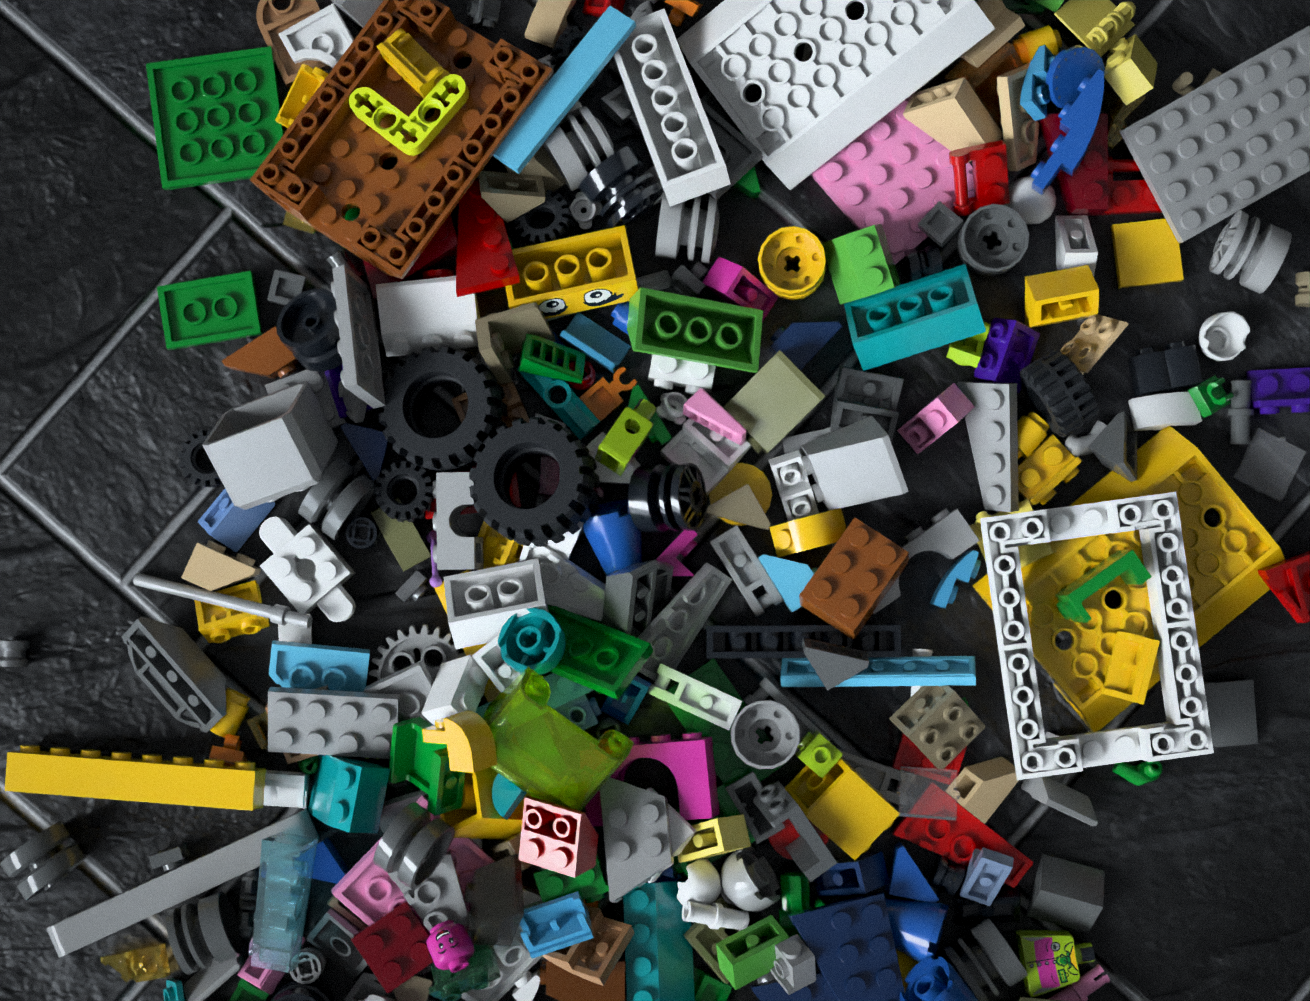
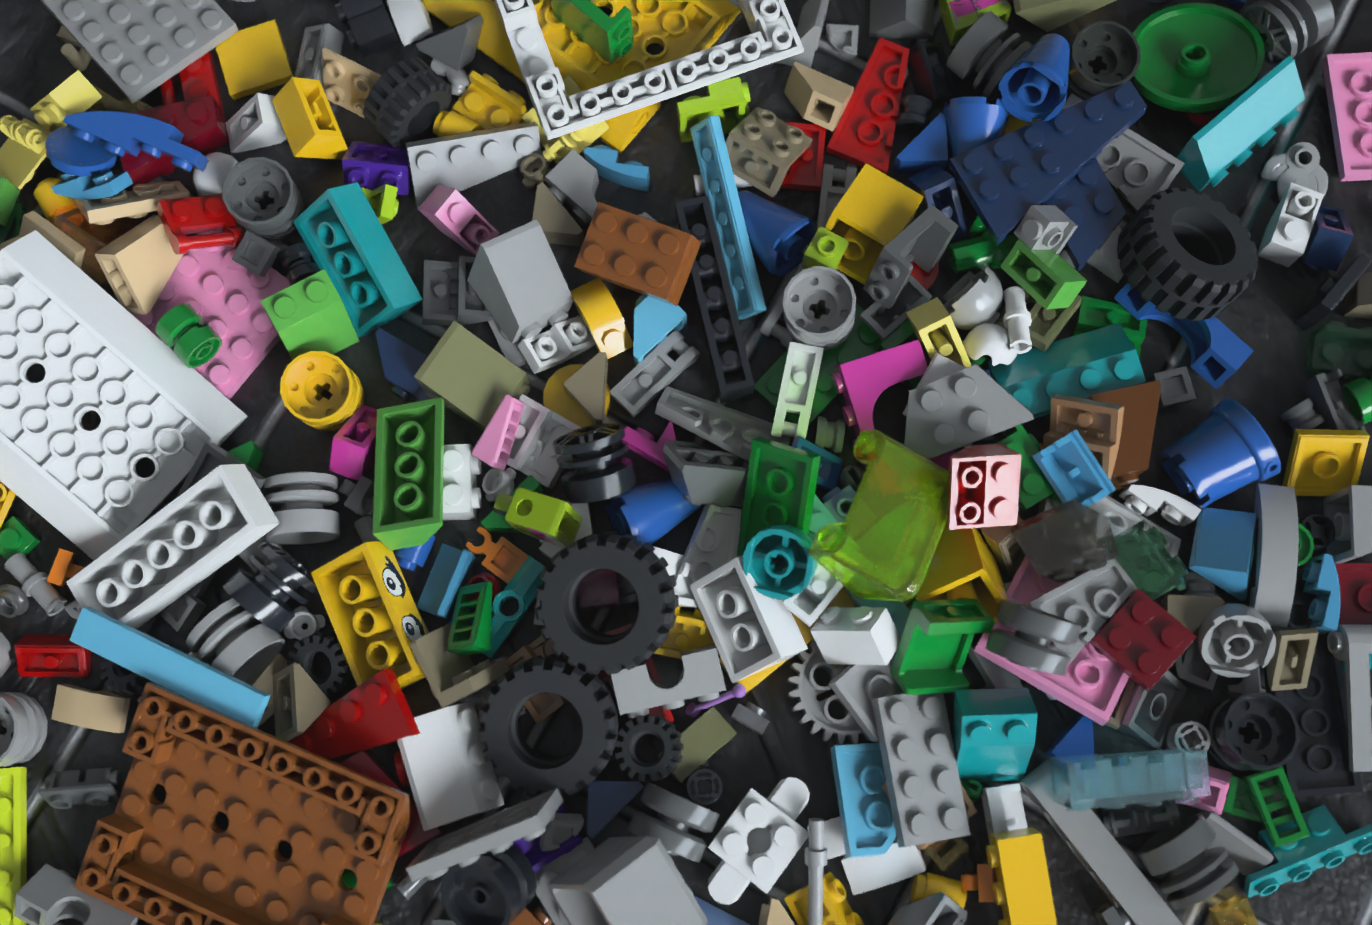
camera: 100 degrees left, 10 degrees down
(257, 670) = (879, 871): none -> white slope
(412, 62) = (167, 846): yellow hinge -> none
(414, 124) = (232, 826): neon yellow beam -> none
(450, 946) = (1128, 577): dark pink head -> none
(467, 740) = (902, 599): yellow brick -> none
(506, 796) = (952, 550): teal tile -> none
(652, 717) = (830, 433): none -> dark grey wheel
(834, 662) = (728, 253): dark grey slope -> none
(856, 712) = (775, 232): none -> blue cone
(869, 151) = (186, 333): none -> green wheel
(915, 507) = (555, 220): none -> dark tan slope
(928, 793) = (838, 142): clear piece -> none
(976, 495) = (535, 169): none -> dark tan plate
(985, 875) = (904, 72): sand blue slope -> none
(988, 693) = (724, 99): none -> lime plate
(1043, 827) = (843, 39): none -> light grey tile
(1145, 317) = (311, 55): none -> light grey slope

